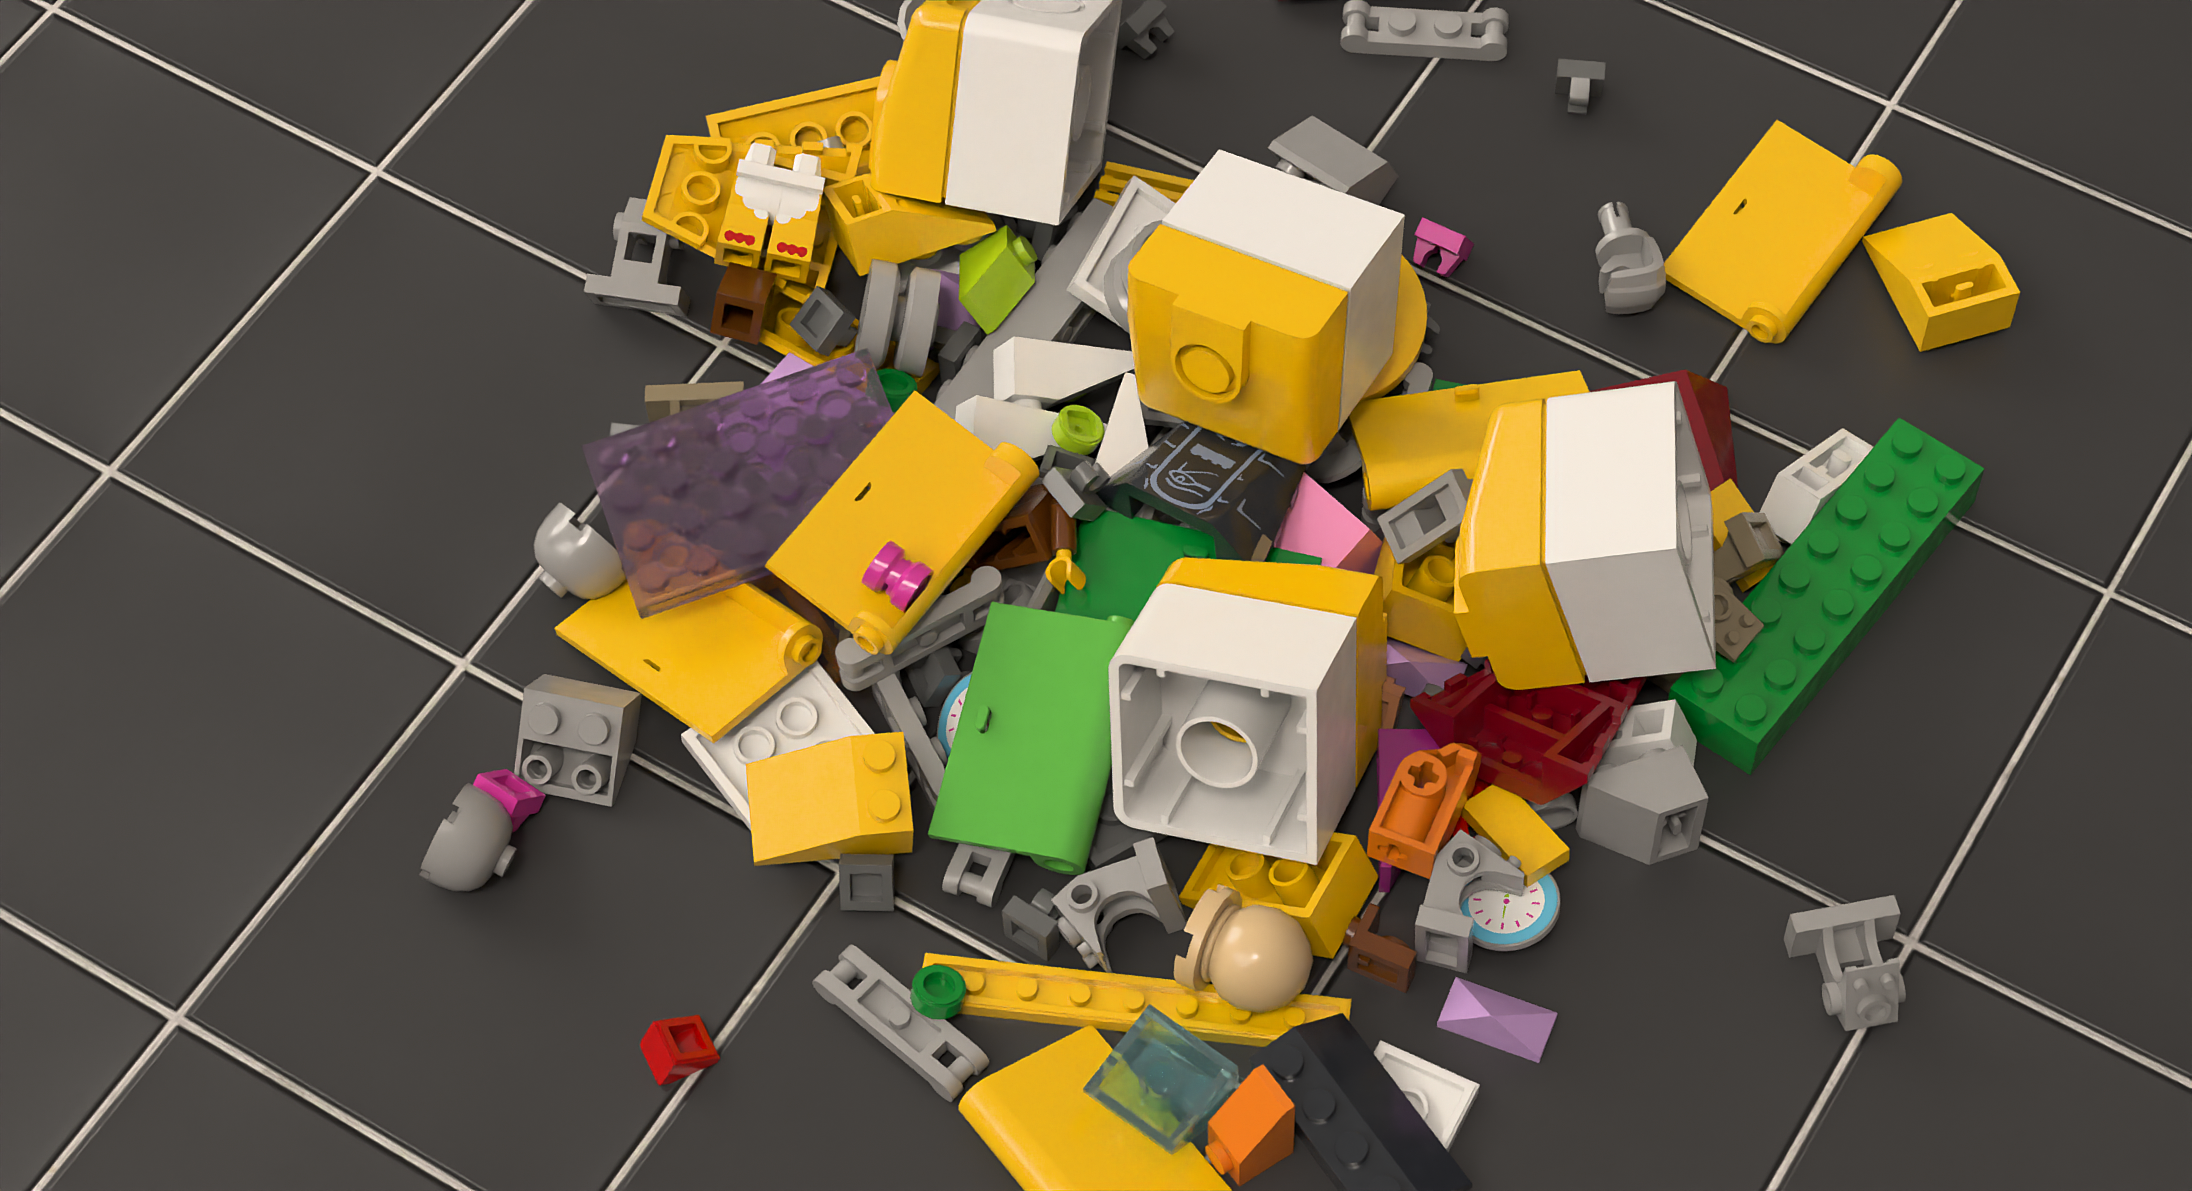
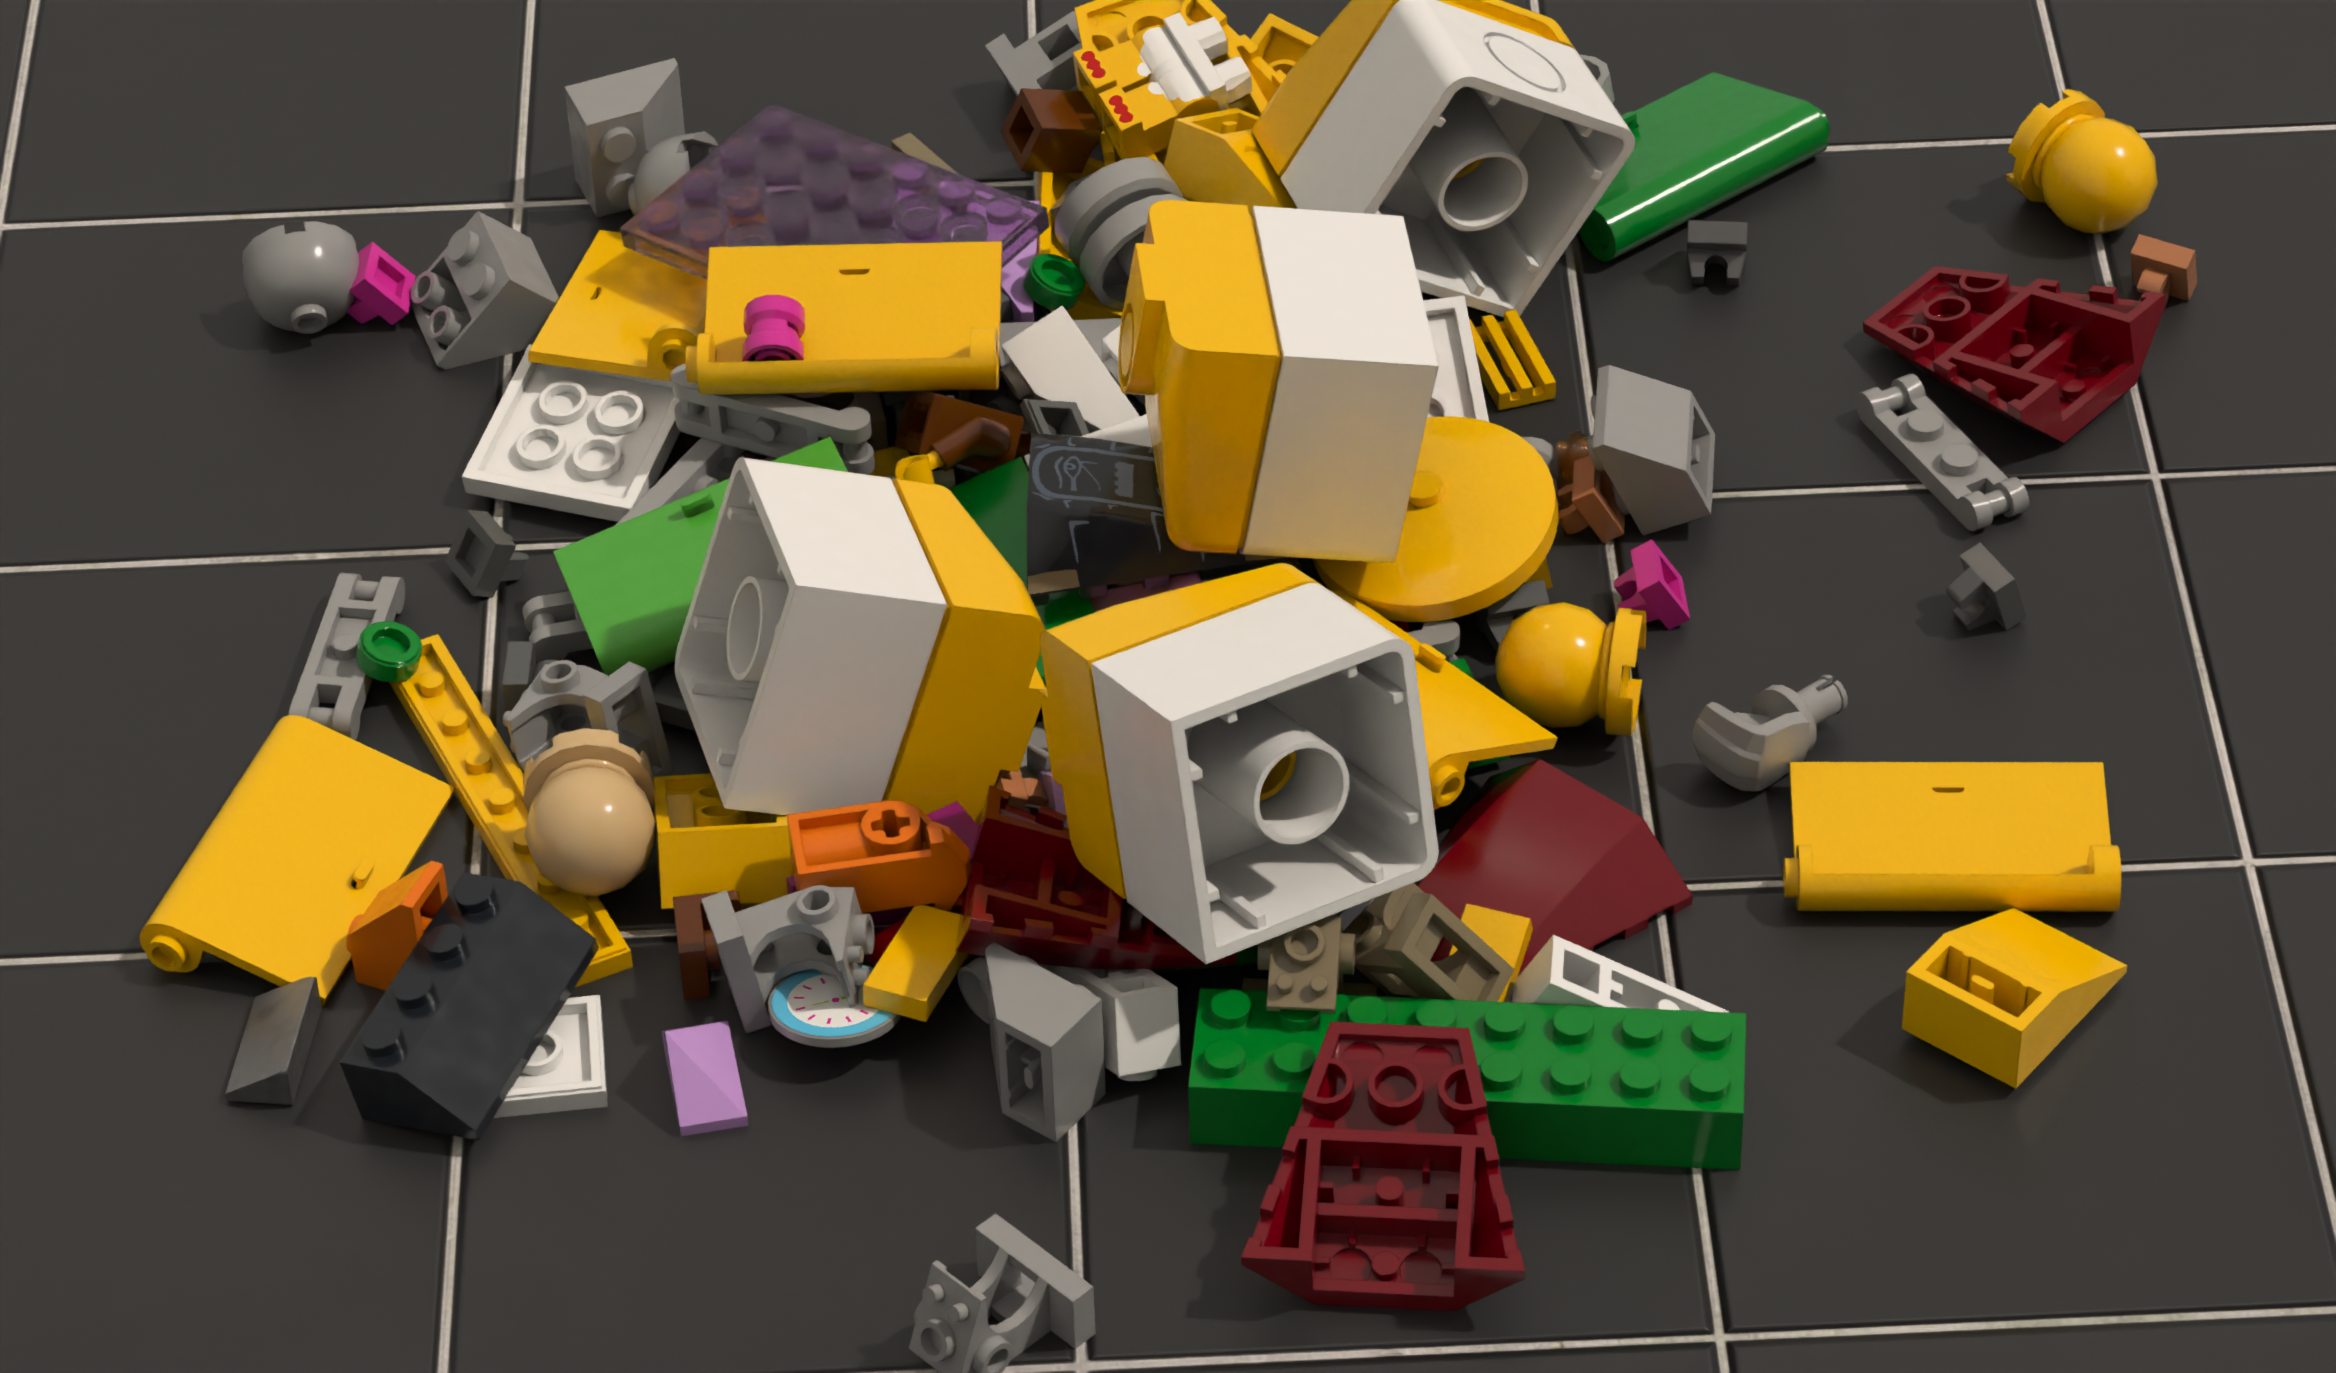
camera: 55 degrees right, 15 degrees down
(493, 559) = (614, 126): none -> light grey slope
(678, 1048) = (207, 532): red slope -> none
(831, 801) = (544, 478): yellow slope -> none
(1077, 489) = (1006, 424): dark grey tile -> none
(1078, 429) = (1109, 406): lime tile -> none
(1163, 1081) = (395, 824): clear light blue slope -> none
(1511, 322) = (1570, 666): none -> yellow tile
(1910, 672) = (1389, 1178): none -> dark red wedge

